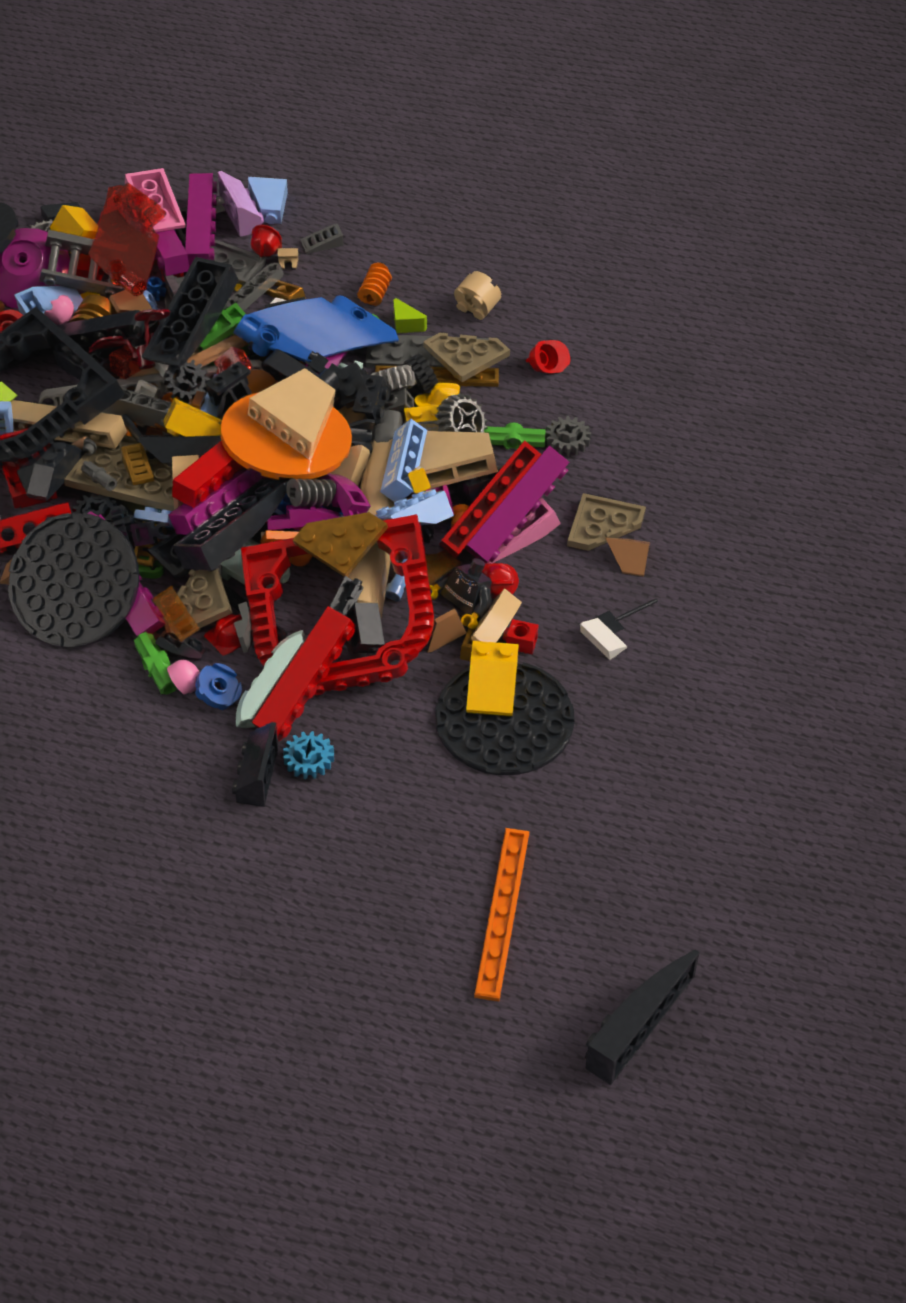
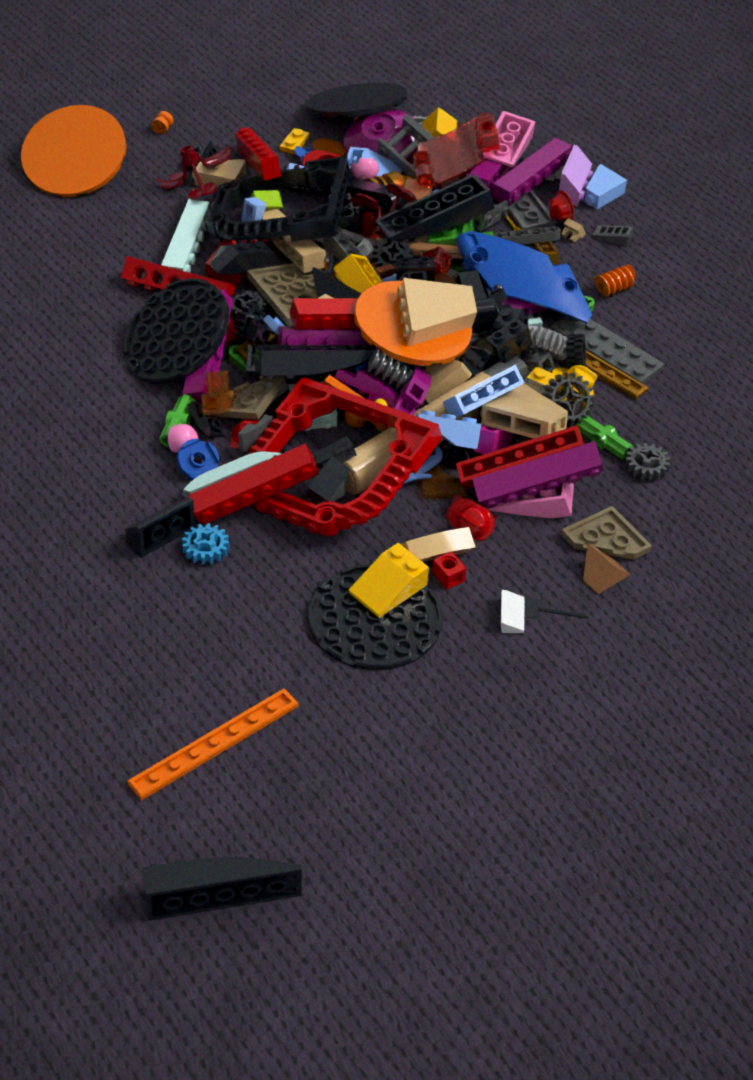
camera: 40 degrees right, 5 degrees down
(87, 445) = (286, 259): dark grey arm -> none
(99, 475) = (268, 280): dark grey axle -> none
(135, 463) = (303, 286): pearl gold slope -> none
(341, 540) = (369, 410): pearl gold plate -> none
(407, 318) = (614, 315): lime slope -> none
(419, 479) = (476, 408): yellow slope -> none
(447, 628) = (397, 526): medium nougat slope -> none
(466, 354) = (629, 361): dark tan plate -> none
(467, 590) = (441, 509): black torso -> none
(477, 295) = (684, 328): tan brick -> none
(551, 354) = (700, 400): red piece -> none

